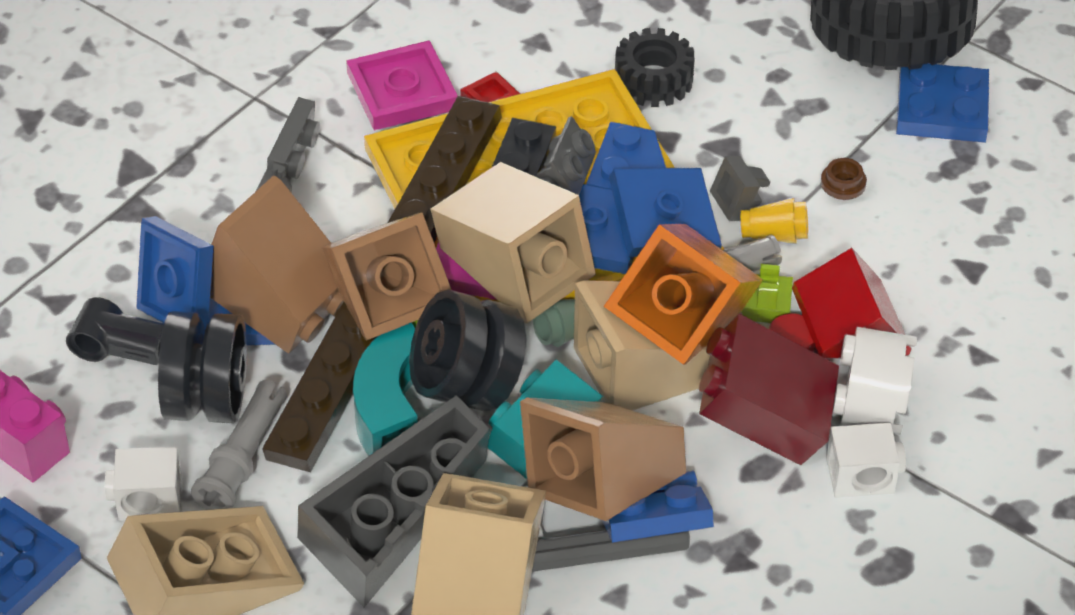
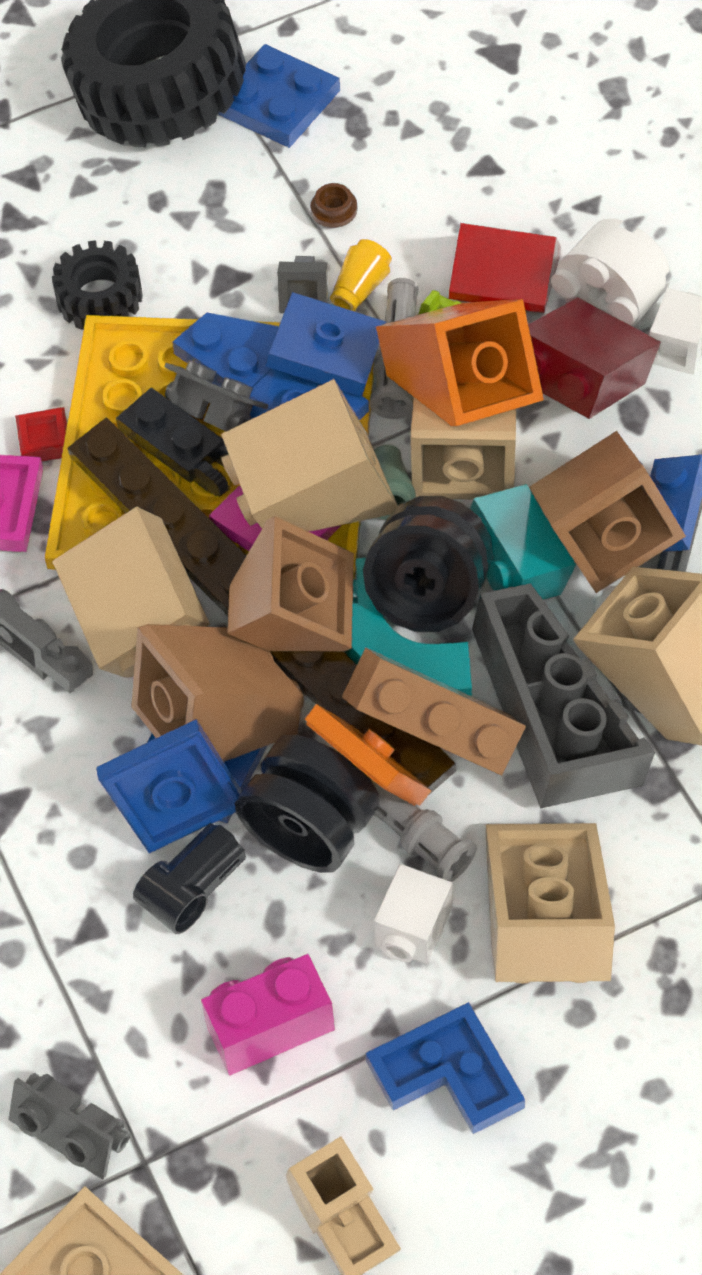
camera: 60 degrees left, 10 degrees up
(255, 379) = (369, 754): none -> orange plate
(321, 403) = (433, 711): none -> medium nougat brick
(353, 182) = (124, 581): none -> tan brick

